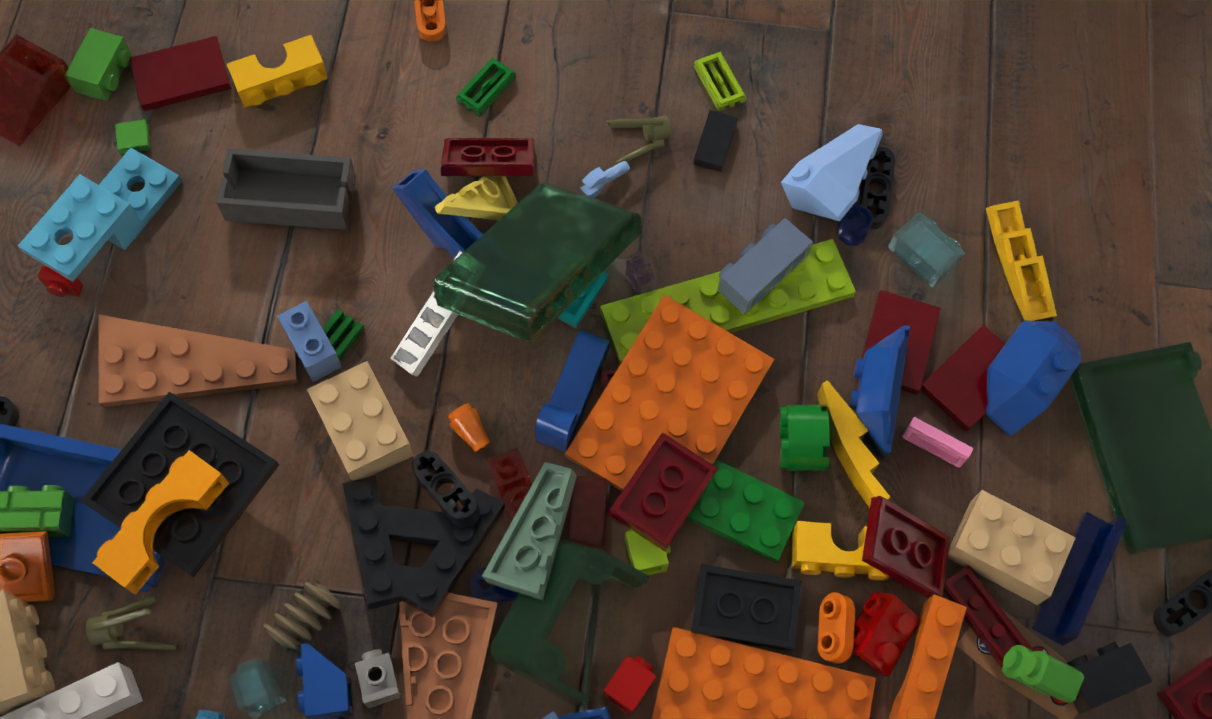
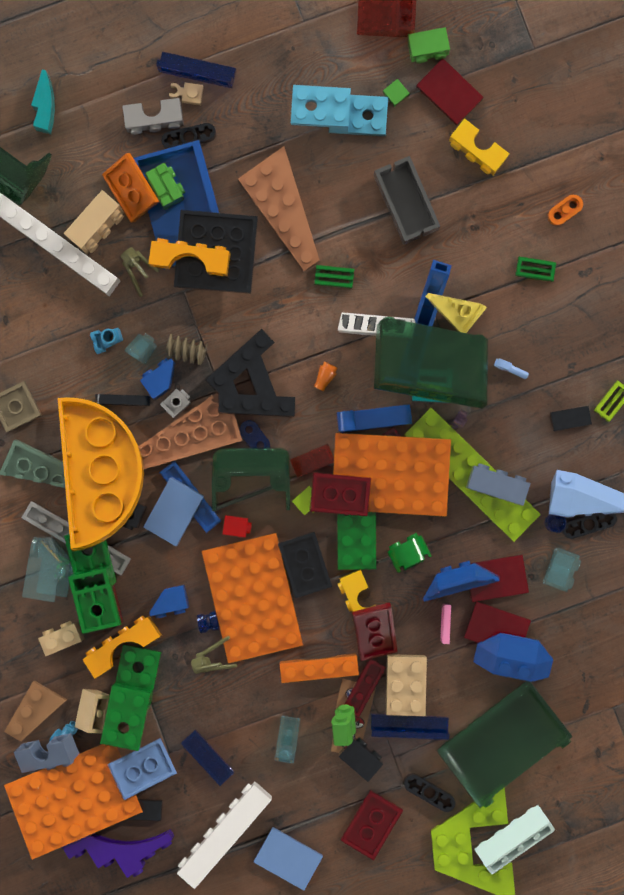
camera: 70 degrees right, 20 degrees up
(57, 284) = (287, 112): red plate -> none
(309, 341) = (324, 267): medium blue brick -> none
(360, 422) = (297, 318): tan brick -> none
(447, 501) = (286, 390): black beam -> none
(488, 157) = (486, 298): dark red tile -> none
(511, 479) = (307, 416): clear red slope -> none
(532, 539) = (279, 441): sand green wing -> none
(654, 128) = (558, 380): olive plant -> none
(836, 628) = (317, 614): orange plate -> none
(847, 437) = (424, 574): yellow slope -> none
(883, 631) = (327, 638): red bracket -> none
(1020, 262) = (583, 625): yellow slope -> none

